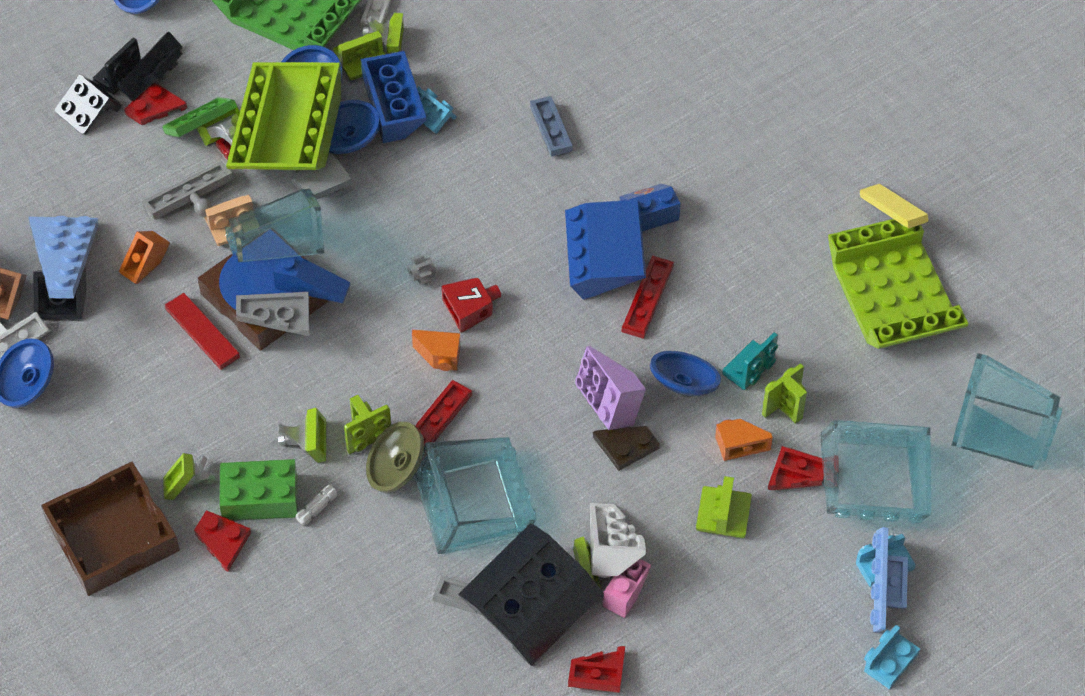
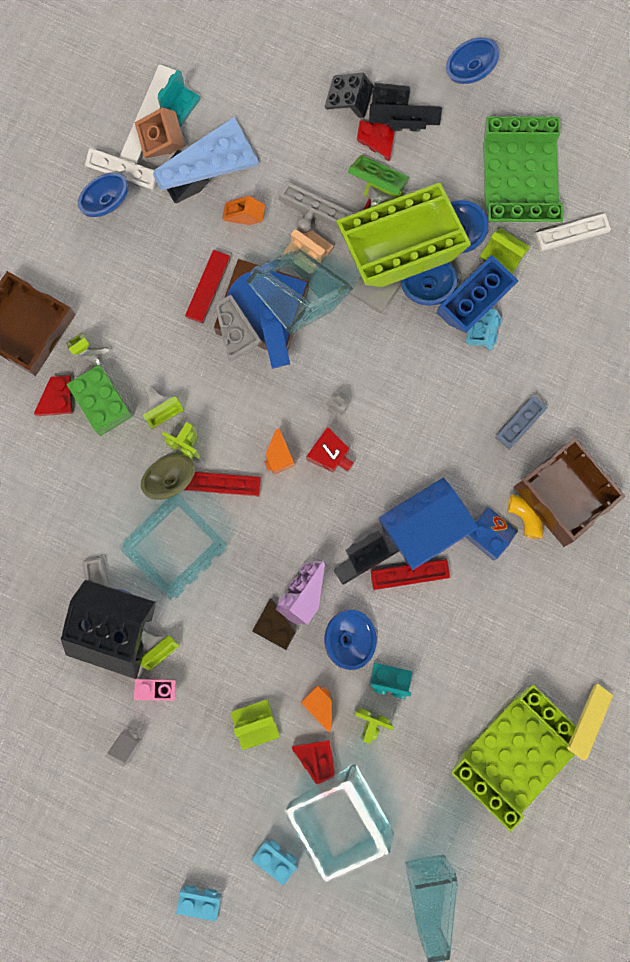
camera: 60 degrees right, 25 degrees up
(316, 505) = (113, 444): white axle -> none
(391, 32) = (534, 260): lime piece -> none
(598, 671) = (83, 704): red wing -> none
(603, 321) = (365, 556): none -> black bracket
(612, 541) = (177, 666): white wedge -> none
(650, 115) = (569, 492): none -> reddish brown tile
(651, 163) = (532, 524): none -> yellow cylinder
(675, 646) = (124, 748): none -> light grey slope
(890, 580) = (253, 877): light blue bracket -> none

